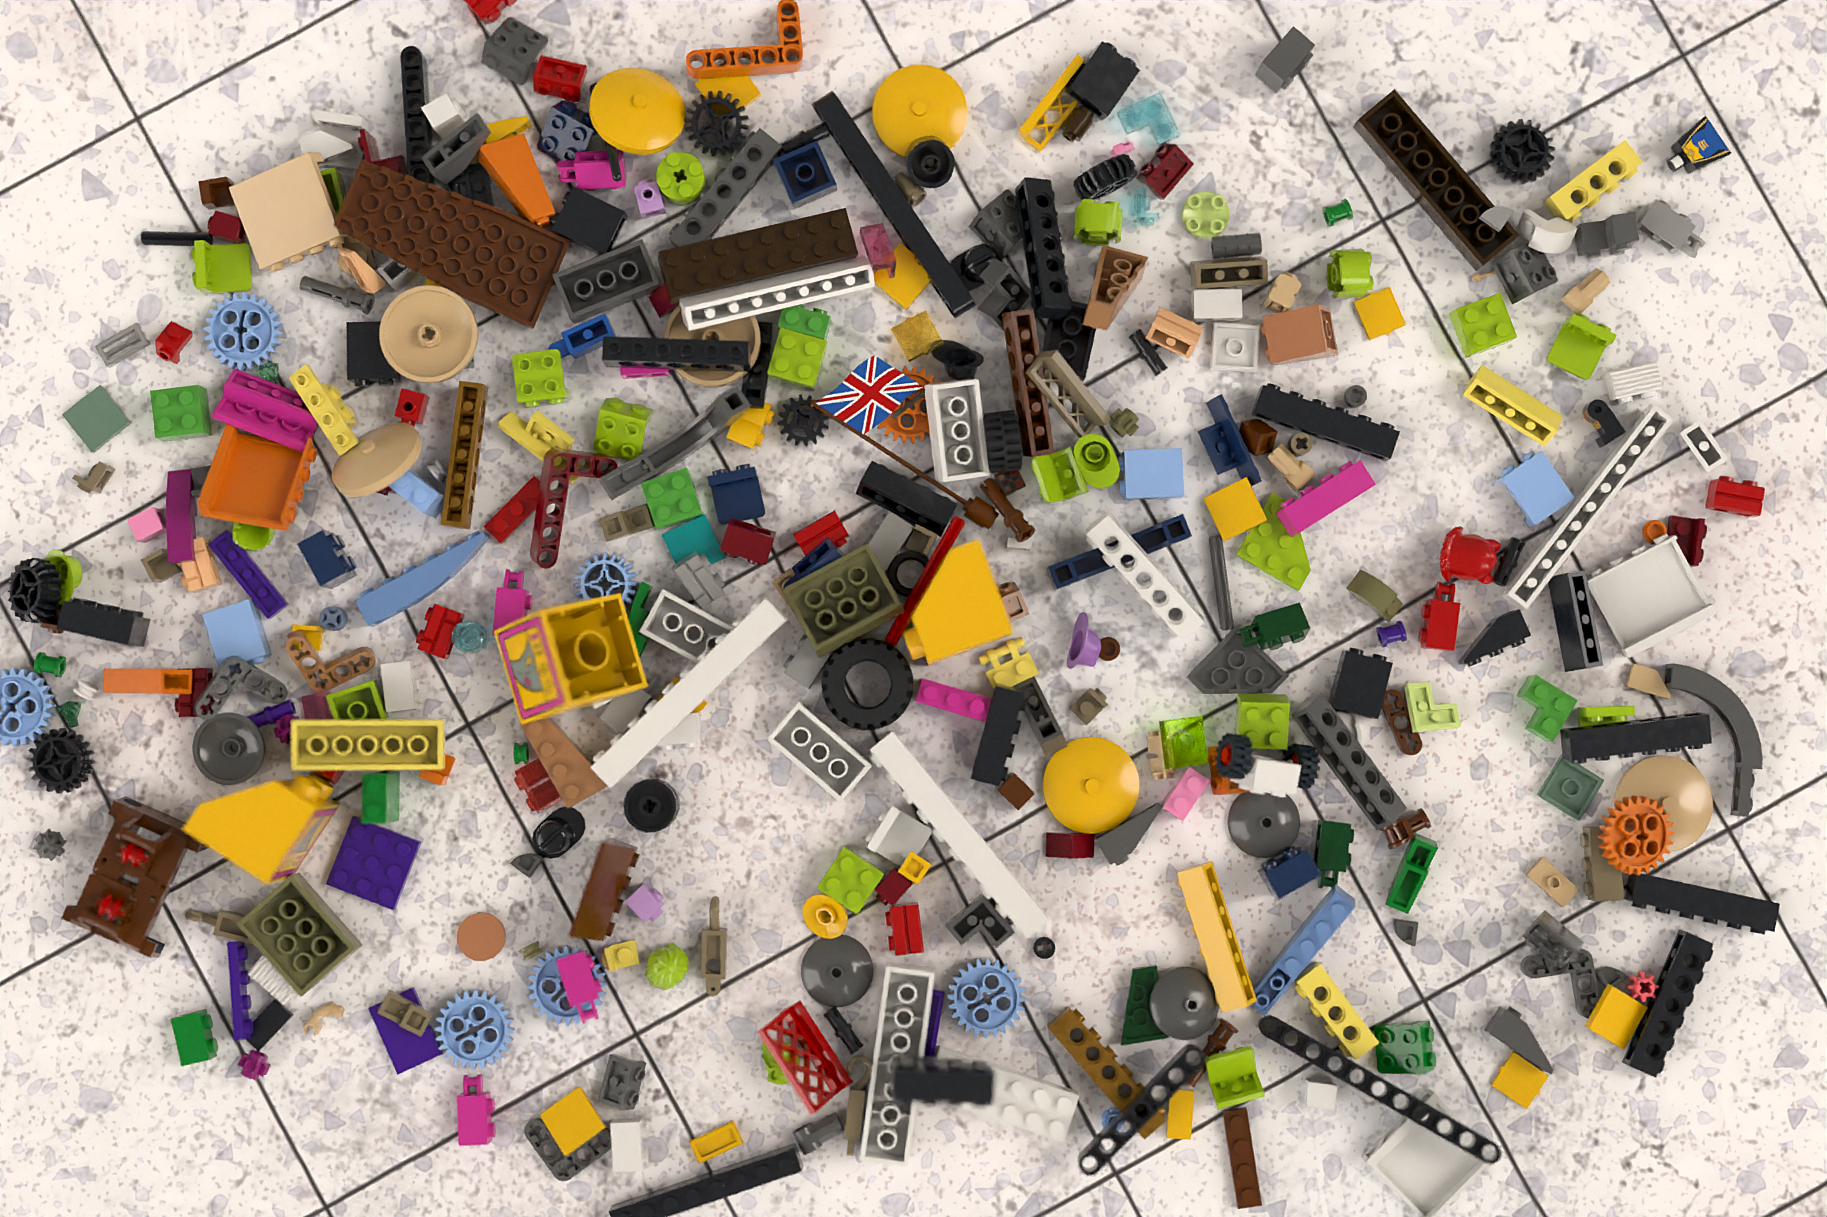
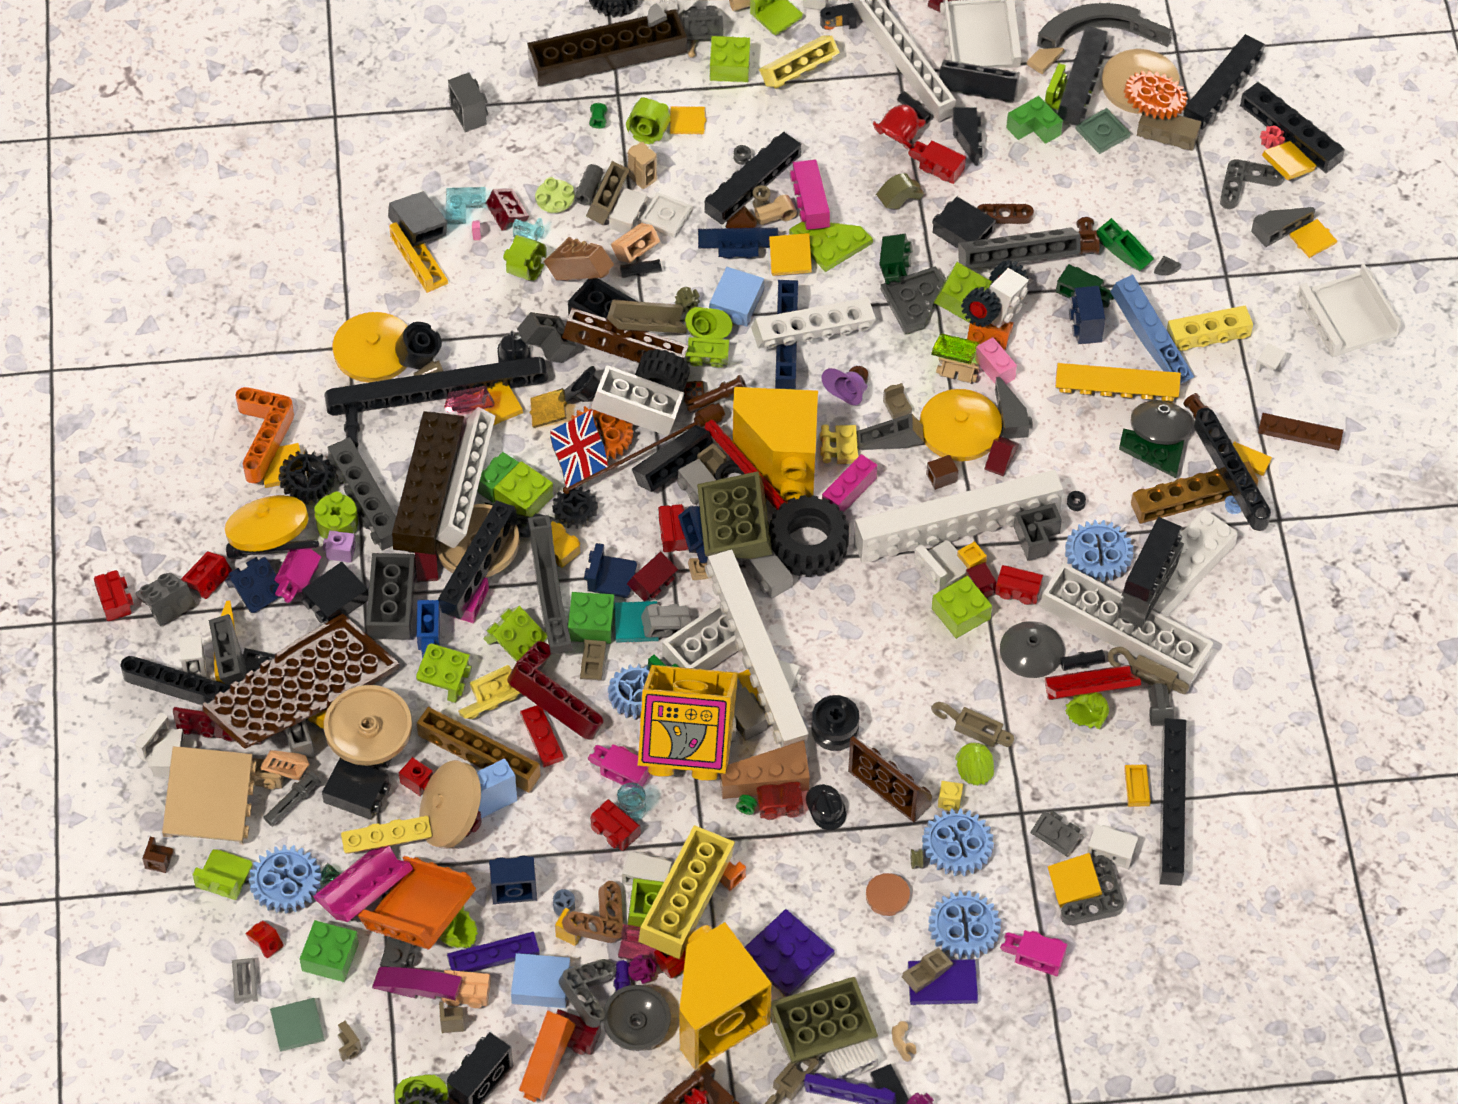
camera: 65 degrees left, 30 degrees down
(148, 524) = (411, 1011): bright pink panel -> none
(174, 238) = (177, 904): black axle -> none
(226, 227) = (190, 856): dark red brick -> none
(380, 797) = (737, 909): green brick -> none
(417, 582) = (565, 827): medium blue slope -> none
(518, 177) = (272, 627): orange slope -> none
(527, 863) = (841, 837): dark grey tile -> none
(579, 983) = (961, 819): dark pink brick -> none
(646, 903) = (914, 759): lavender brick -> none
(805, 175) = (381, 432): dark blue brick -> none
(819, 752) = (847, 588): white brick -> none
(821, 922) = (992, 632): yellow dish -> none
(998, 734) = (892, 463): black brick -> none
(999, 224) = (491, 322): dark grey bracket -> none
(1043, 248) = (526, 293): black brick -> none
(1077, 124) = (440, 248): dark brown brick -> none
(1105, 177) = (493, 239): black gear -> none
(1221, 583) = (842, 285): dark grey axle -> none
(1233, 1077) = (1233, 411): lime bracket -> none
(1246, 825) = (1040, 333): dark grey dish -> none
(1299, 335) = (678, 167): nougat slope -> none
(1390, 1091) = (1275, 323): black beam -> none
(1391, 634) = (934, 190): dark purple bush -> none
(1405, 1048) = (1258, 296): green bracket -> none
(1426, 715) = (1003, 194): yellowish green plate -> none
(1536, 487) = (867, 69): light blue panel -> none
(1552, 882) = (1169, 165): tan plate -> none
(1552, 940) = (1212, 169): dark grey slope -> none
(1610, 976) = (1256, 155): dark grey tile -> none
(1653, 530) = (933, 16): orange plate -> none

